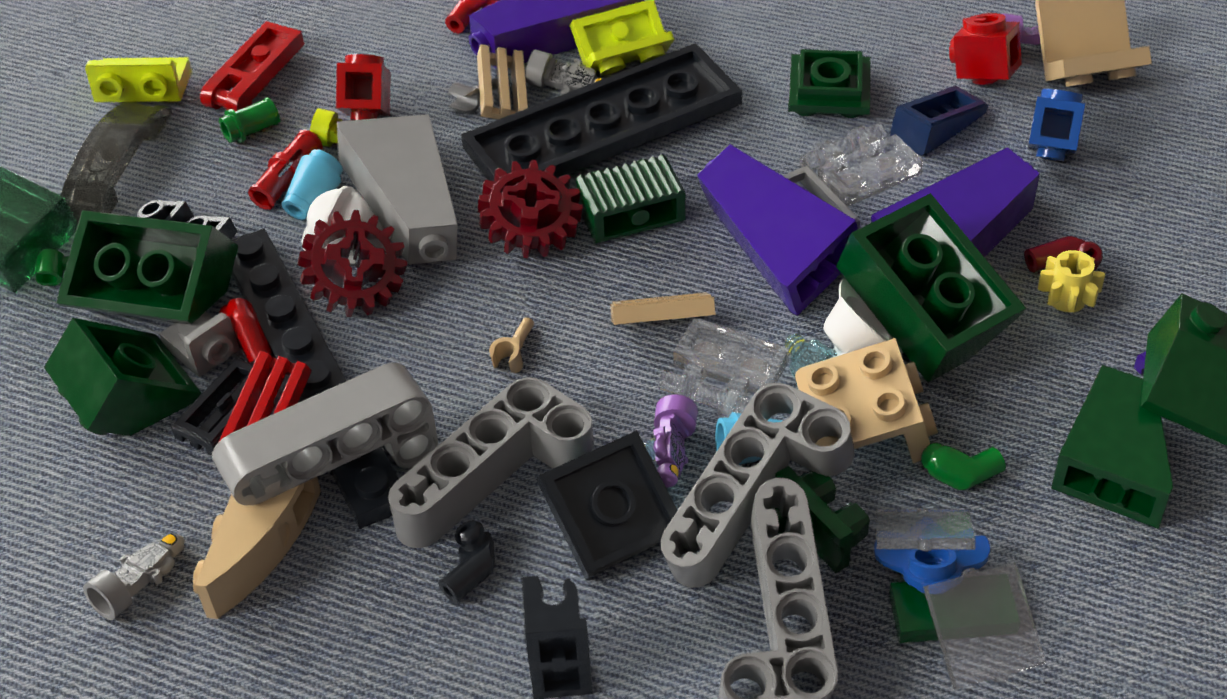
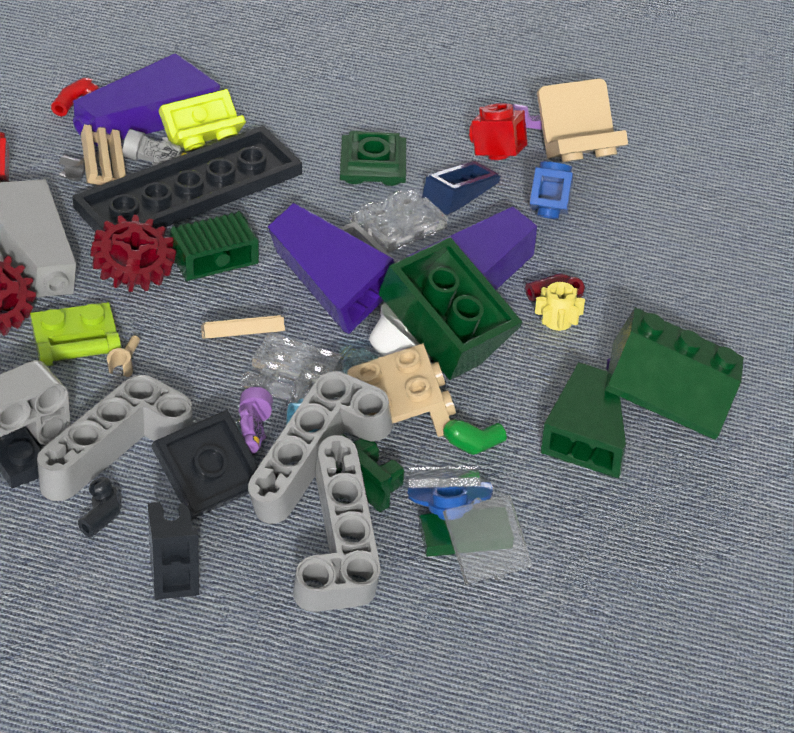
camera: 10 degrees left, 5 degrees down
(452, 313) = (74, 332): none -> lime plate

